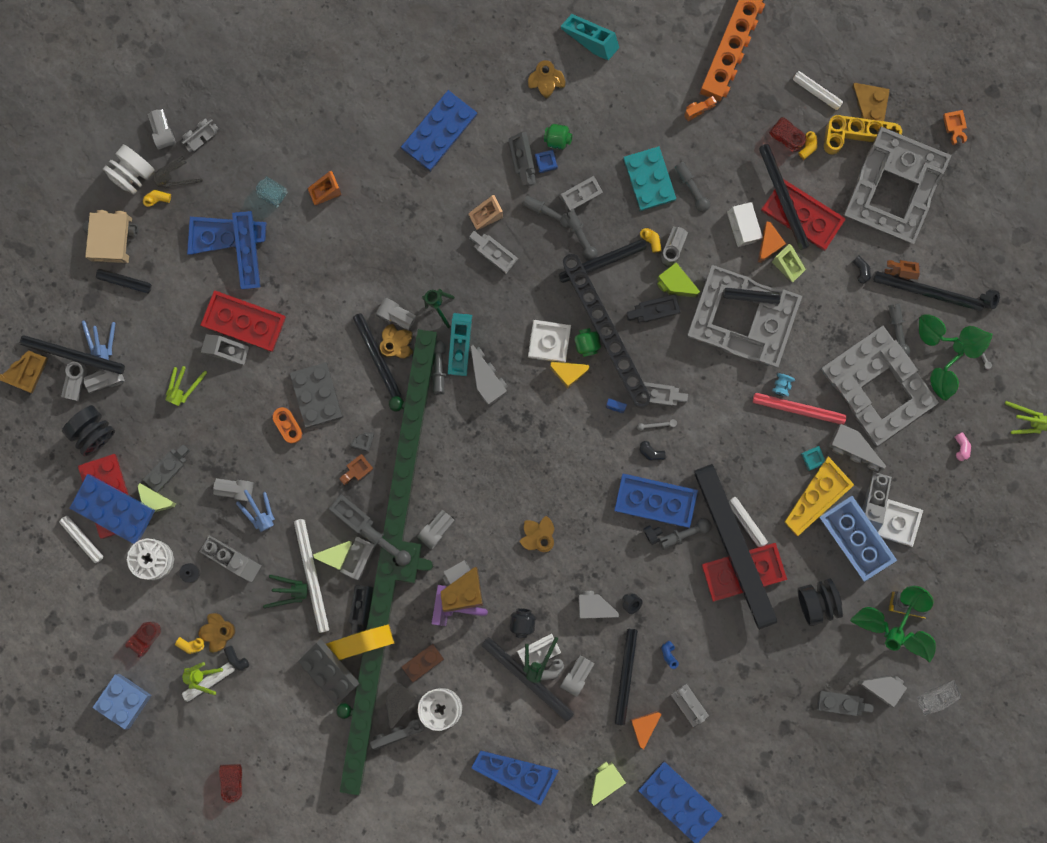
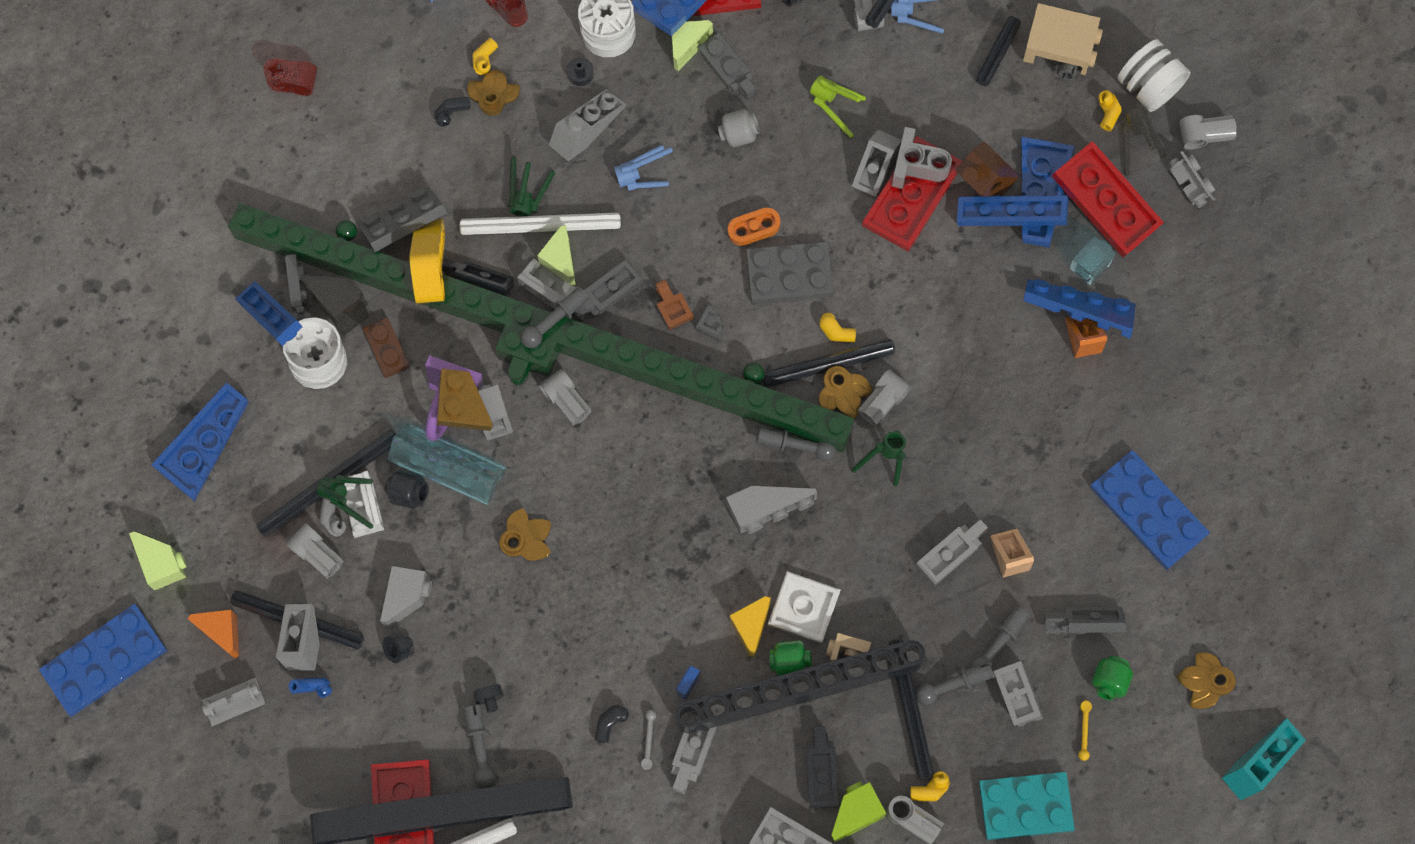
camera: 110 degrees right, 10 degrees down
(193, 676) = (439, 53): lime plant -> none
(208, 681) = (429, 70): white axle -> none
(215, 449) = (739, 128): none -> light grey head
(219, 273) = (984, 170): none -> reddish brown torso
(221, 314) = (923, 167): none -> light grey tile
(225, 188) = (1107, 199): none -> red plate
(232, 489) = (681, 142): light grey piece -> none
(306, 184) = (1081, 305): none -> blue wing
(353, 357) = (834, 331): none -> yellow arm
(419, 748) = (269, 313): none -> blue plate
(459, 344) = (829, 478): teal slope -> none
(501, 600) = (443, 465): none -> clear light blue fence
(546, 161) = (1078, 656): blue tile -> none
(571, 304) = (848, 644): none -> tan bracket
(578, 151) = (1085, 707): none -> yellow hinge
(640, 670) = (298, 638): none -> light grey slope
(656, 500) = (536, 713): blue plate -> none

